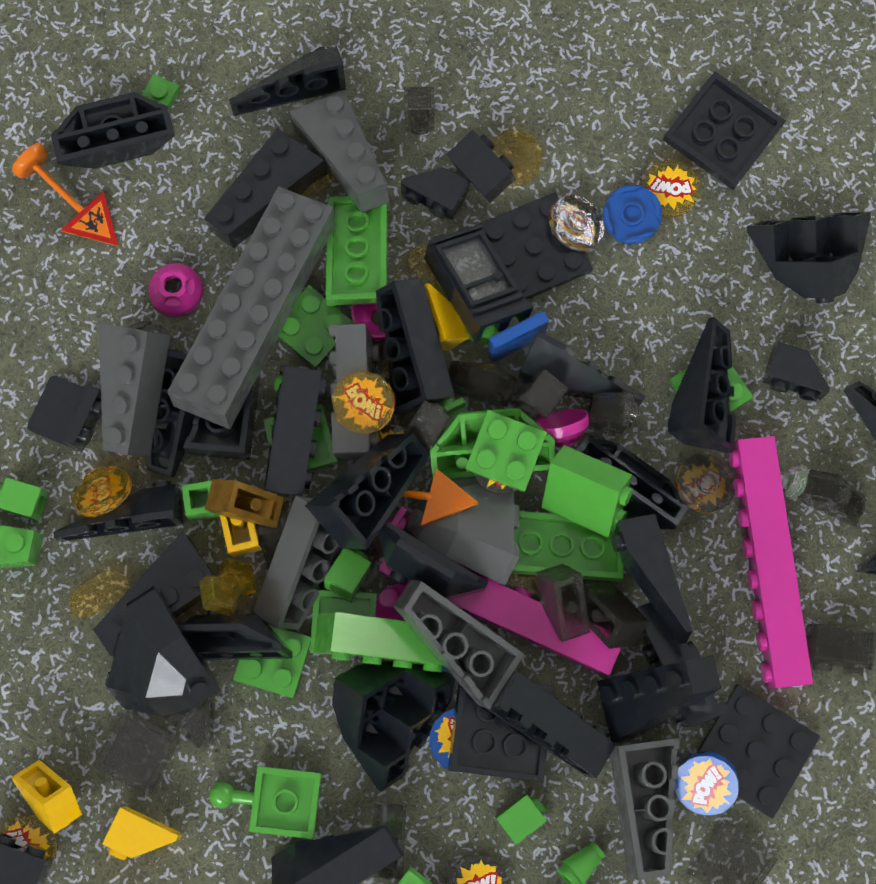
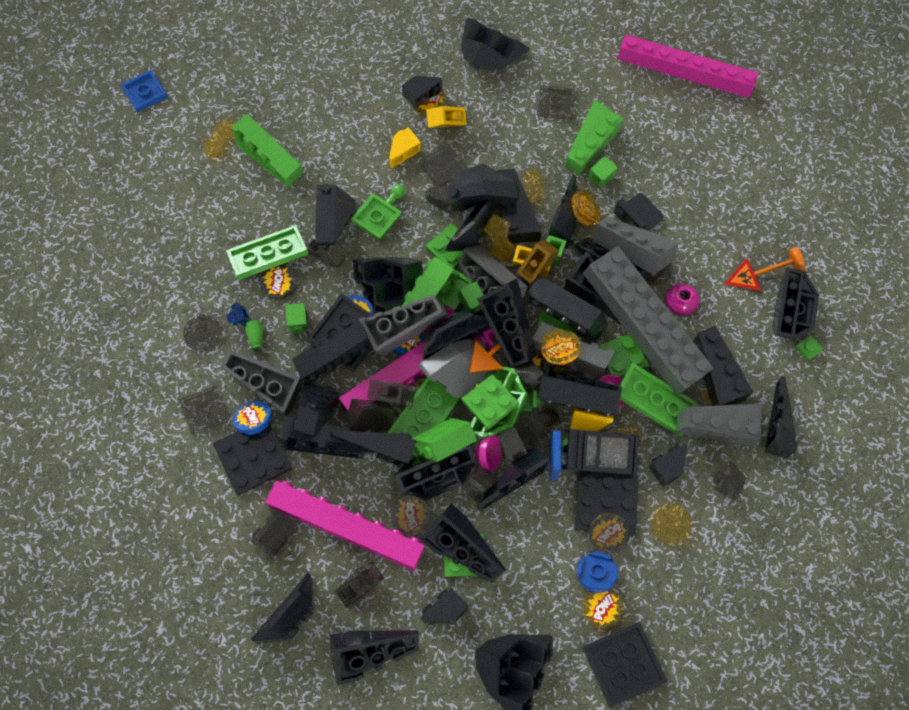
camera: 120 degrees right, 10 degrees down
(481, 165) = (673, 496): black brick -> none
(794, 481) = (381, 565): clear tile -> none

